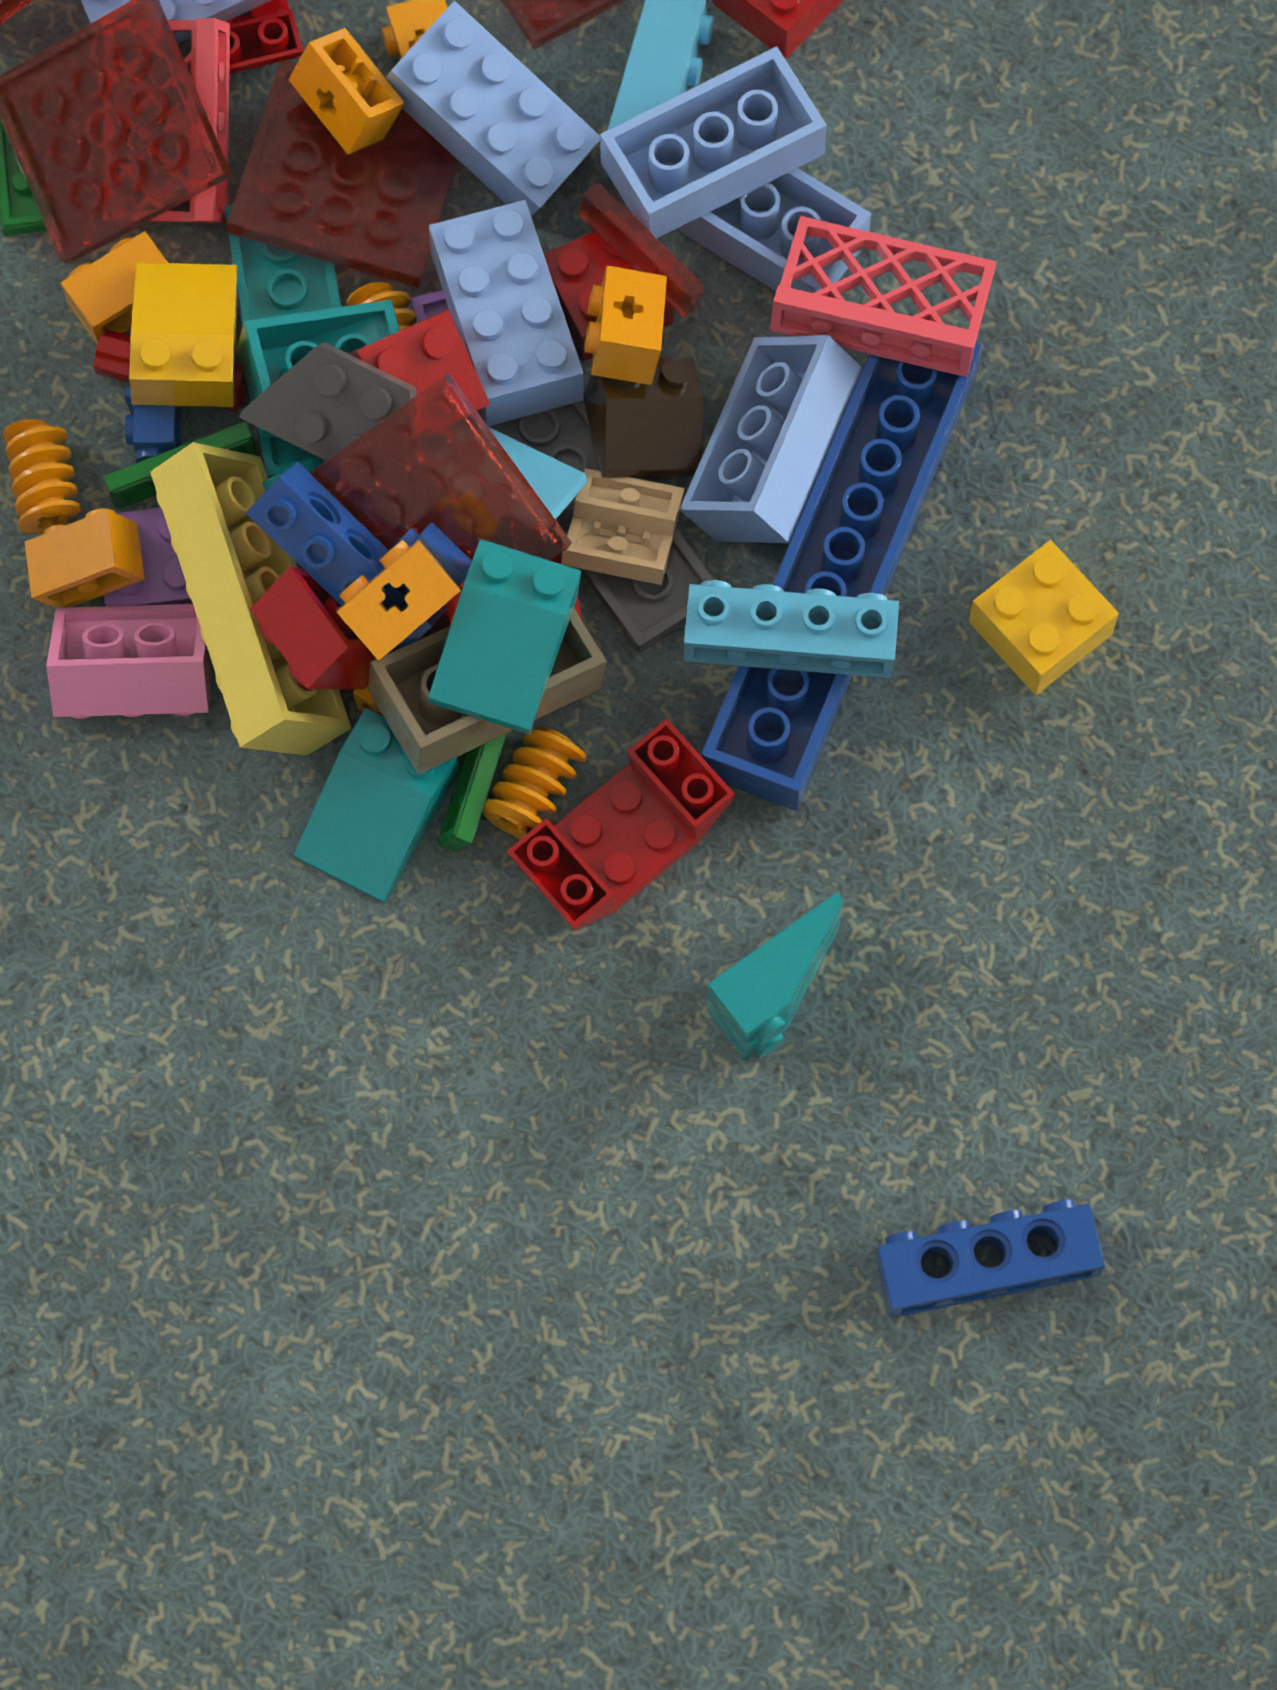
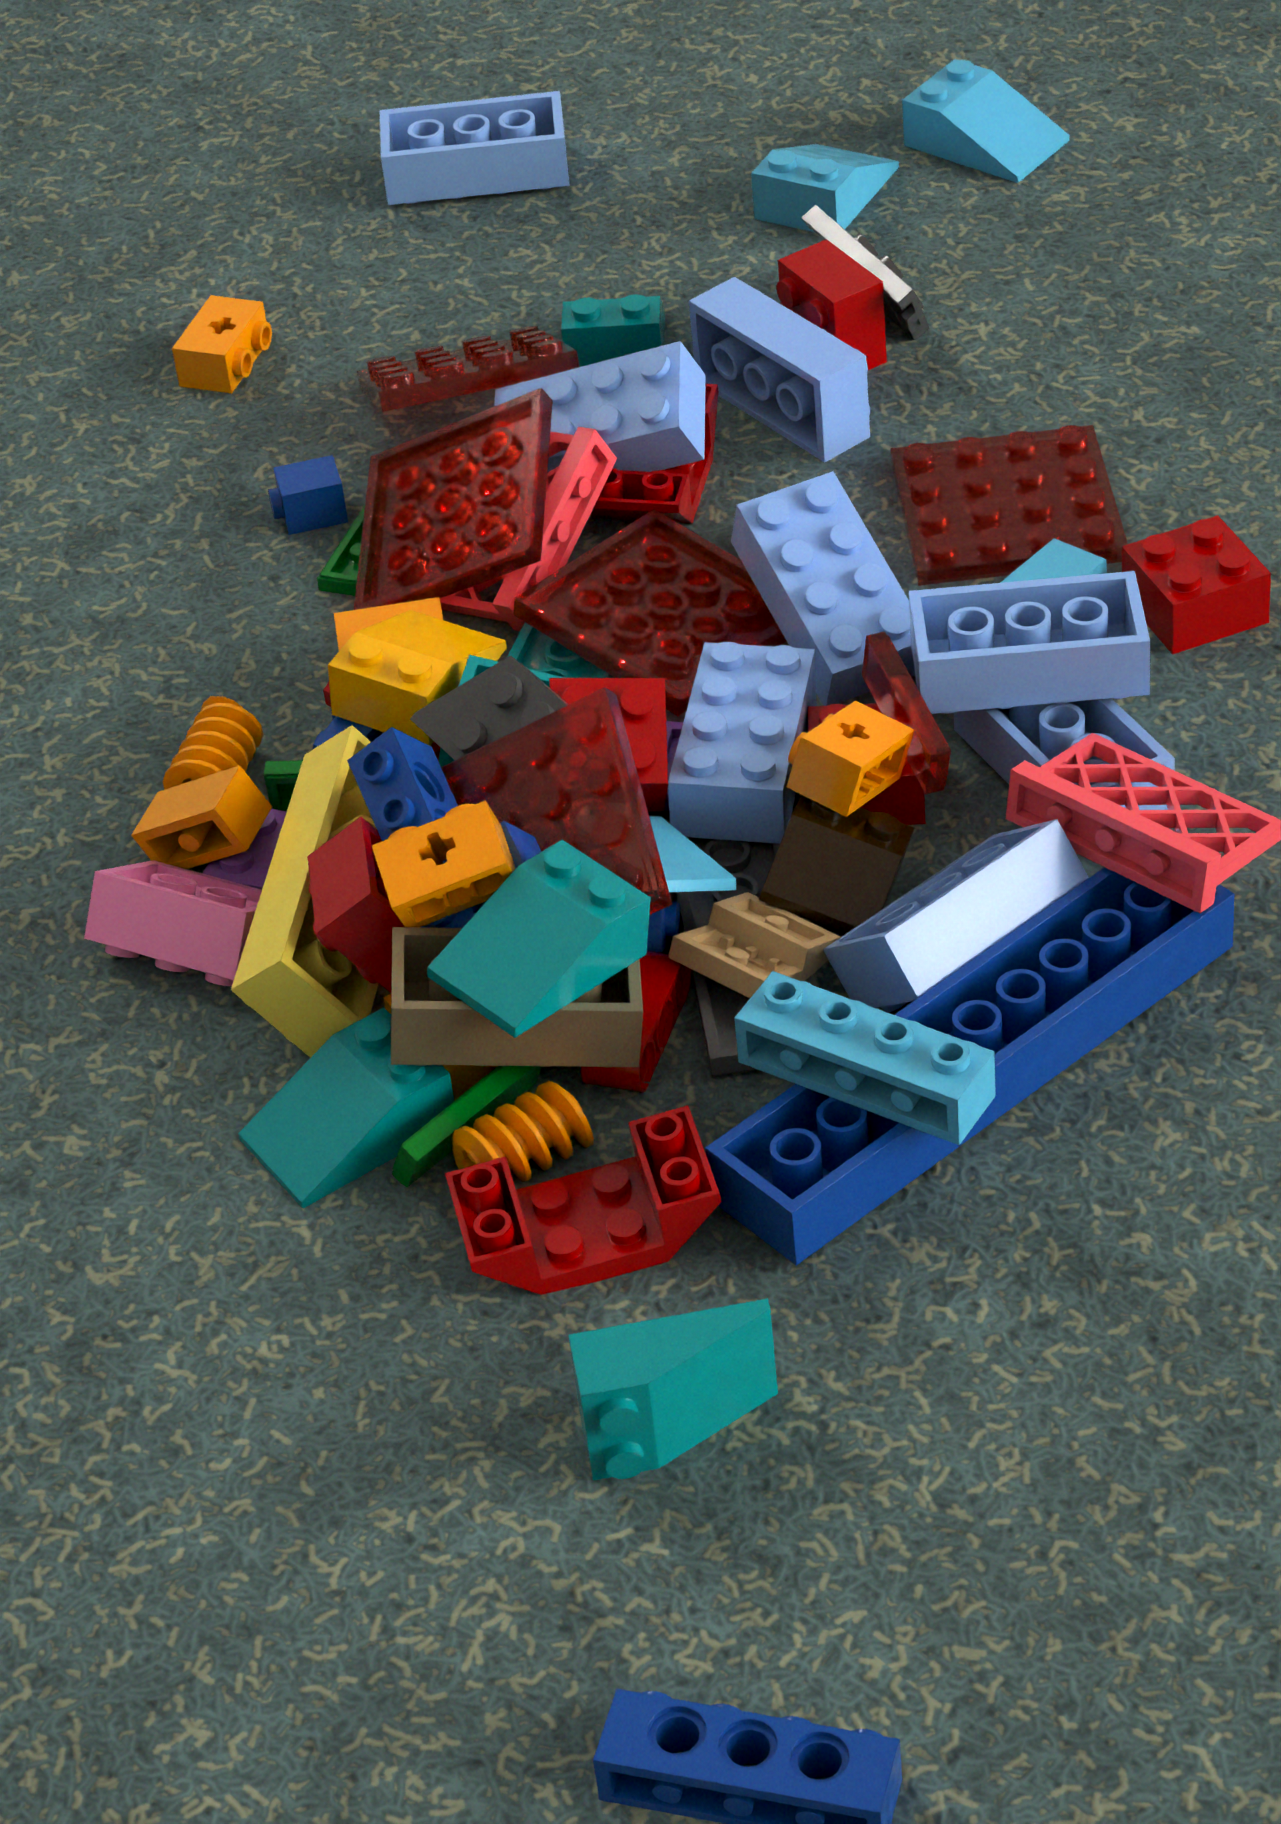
camera: 30 degrees right, 30 degrees down
(346, 91) = (692, 528): light orange brick -> none
(1043, 617) = (1178, 1167): yellow brick -> none

